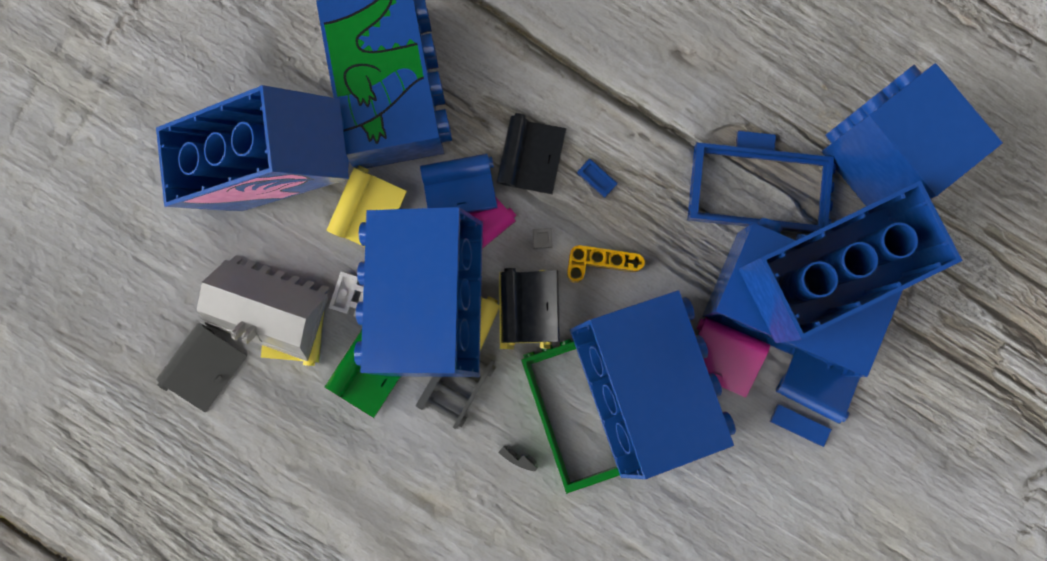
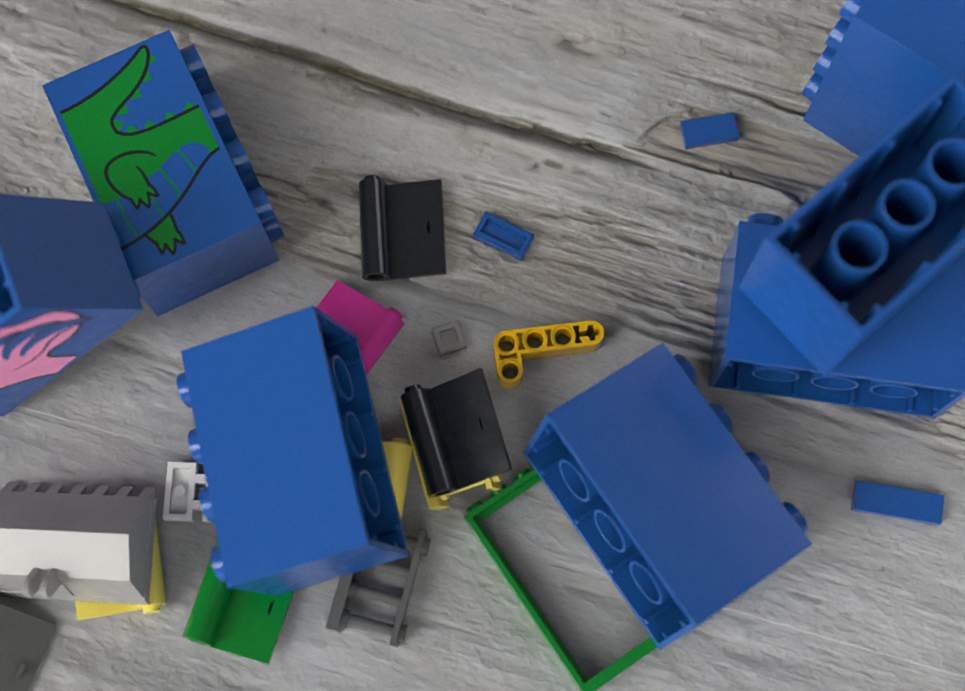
camera: 10 degrees left, 10 degrees down
(362, 194) = (162, 360): light yellow door -> none
(460, 183) = (315, 280): blue door -> none
(524, 462) = (509, 668): dark grey slope -> none
(732, 355) = (772, 426): dark pink door -> none
(817, 387) = (905, 441): blue door -> none
(827, 184) = (637, 156): blue door -> none

